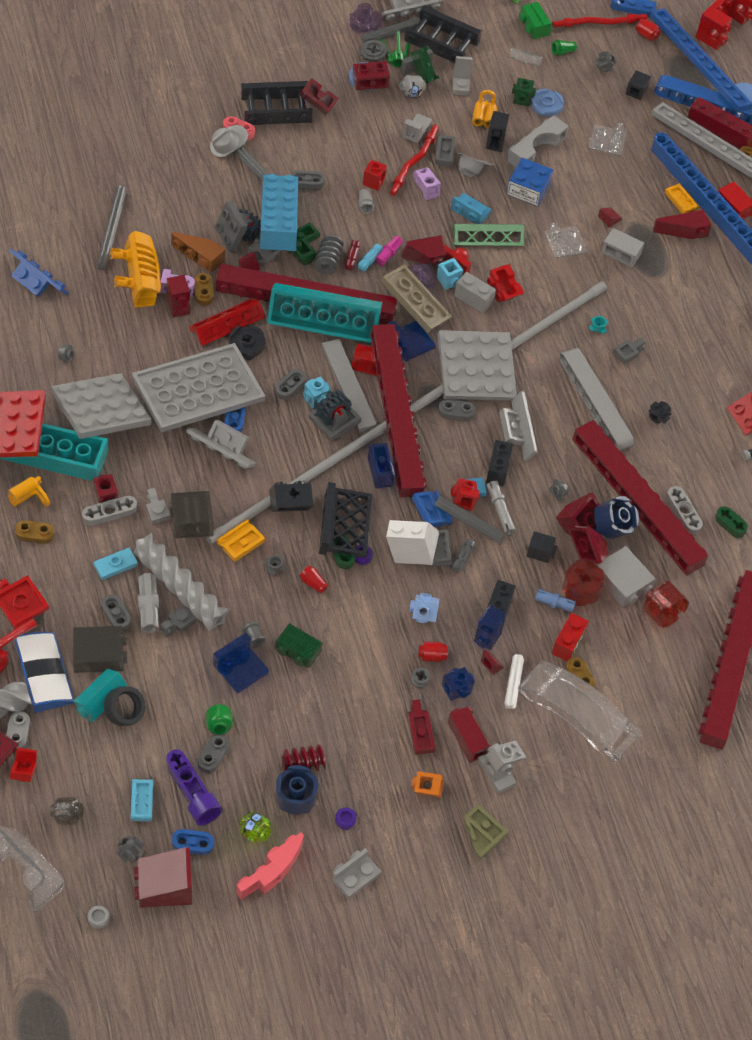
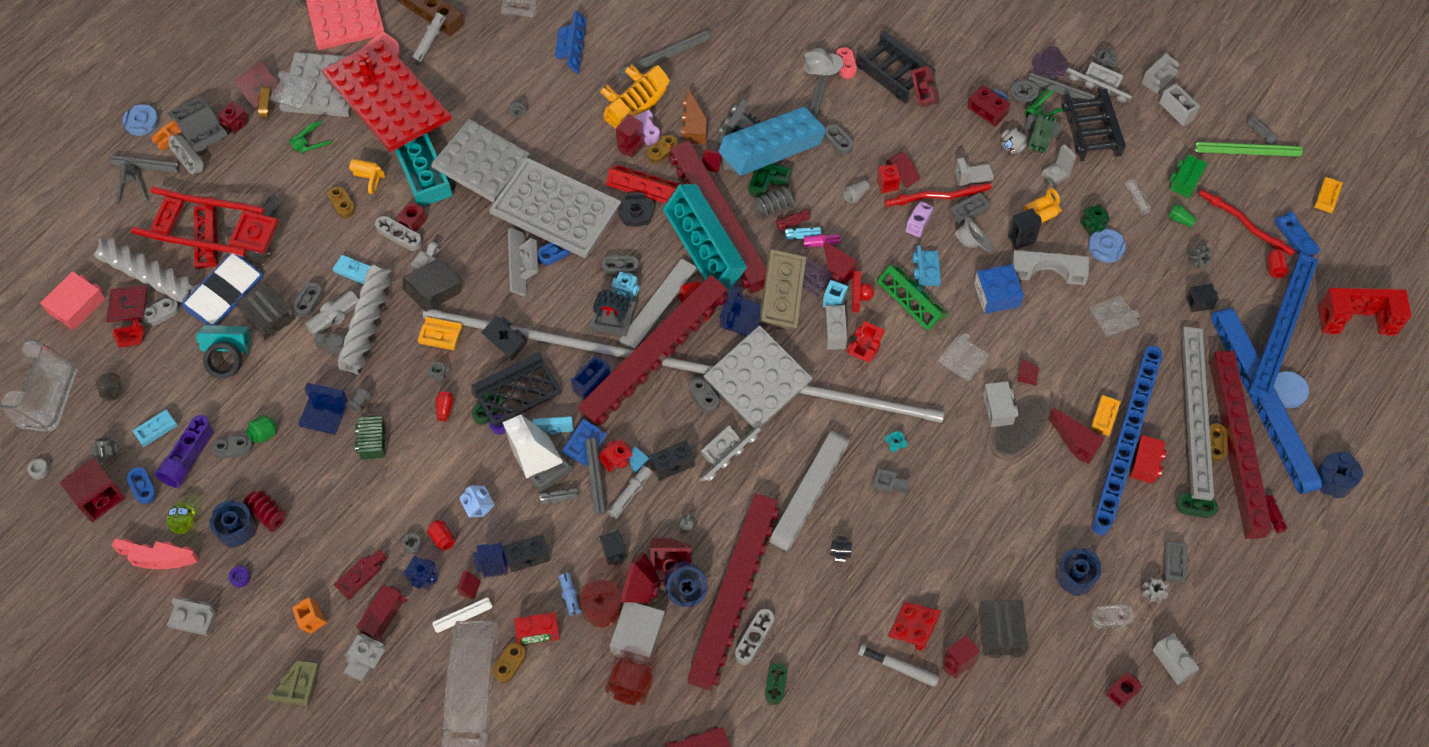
camera: 60 degrees right, 5 degrees up
(365, 156) = (905, 167): none -> dark red panel
(402, 513) = (555, 425): none -> medium azure plate

